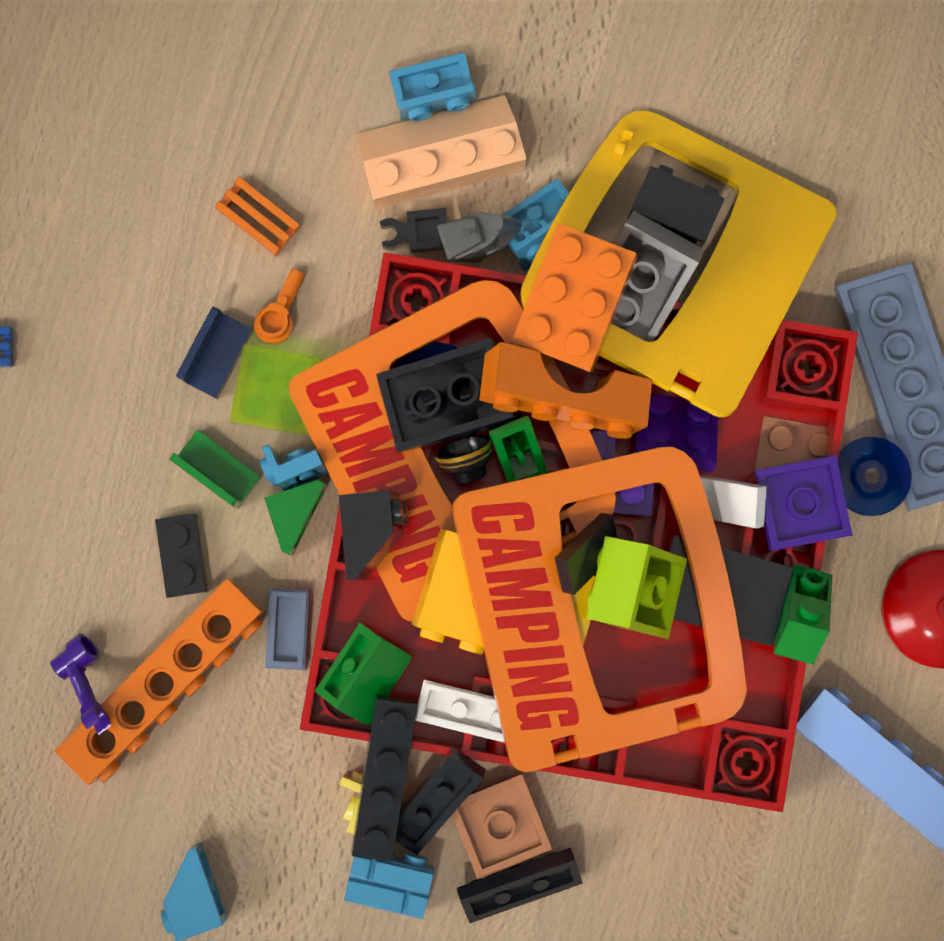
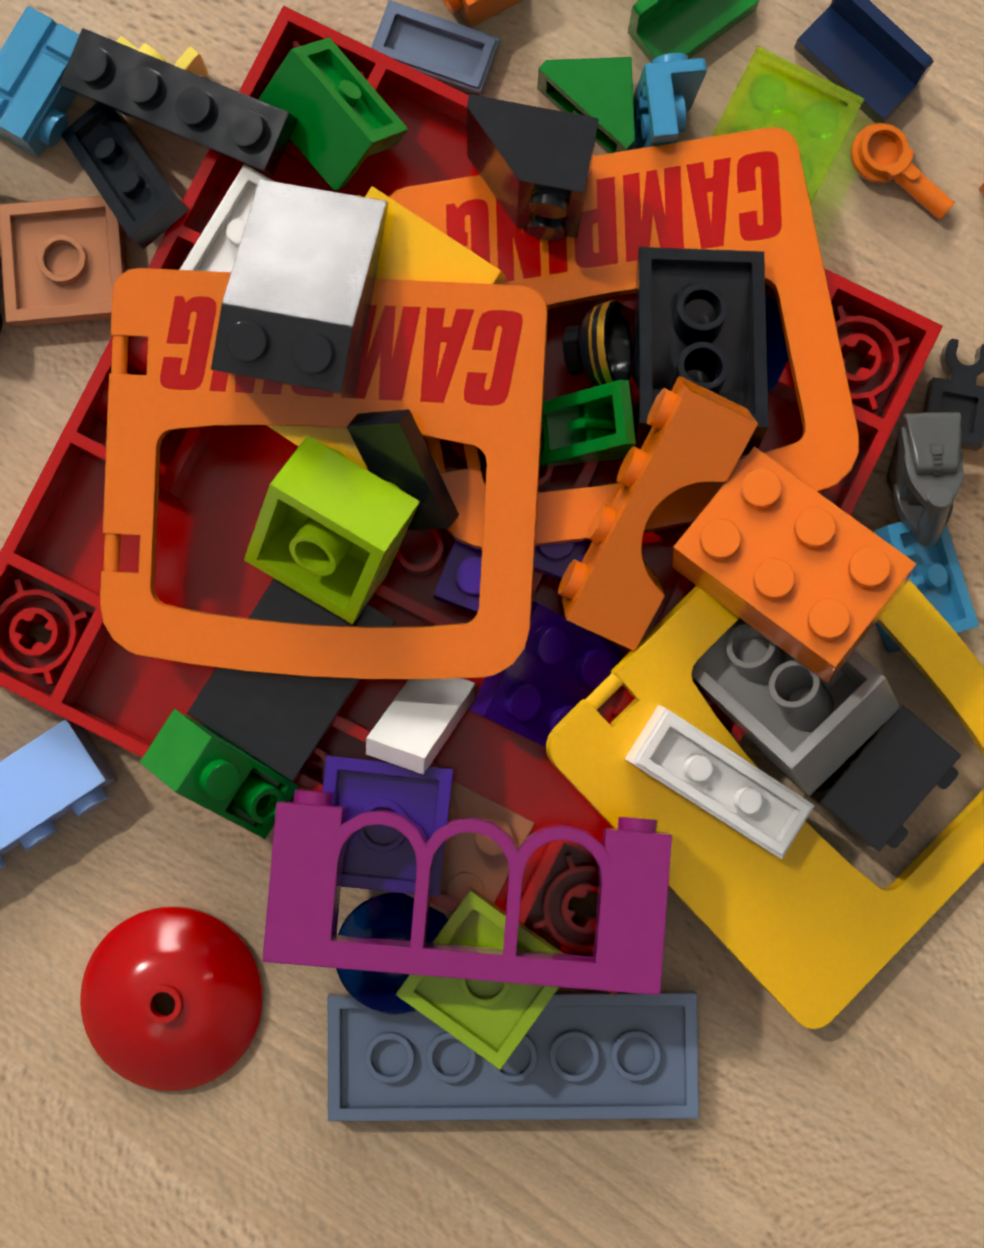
camera: 115 degrees right, 0 degrees up
(499, 648) = (301, 288): none -> slope
(712, 306) = (719, 781): none -> white tile
(816, 335) = (307, 888): none -> magenta fence
(874, 413) = (481, 1013): none -> lime plate

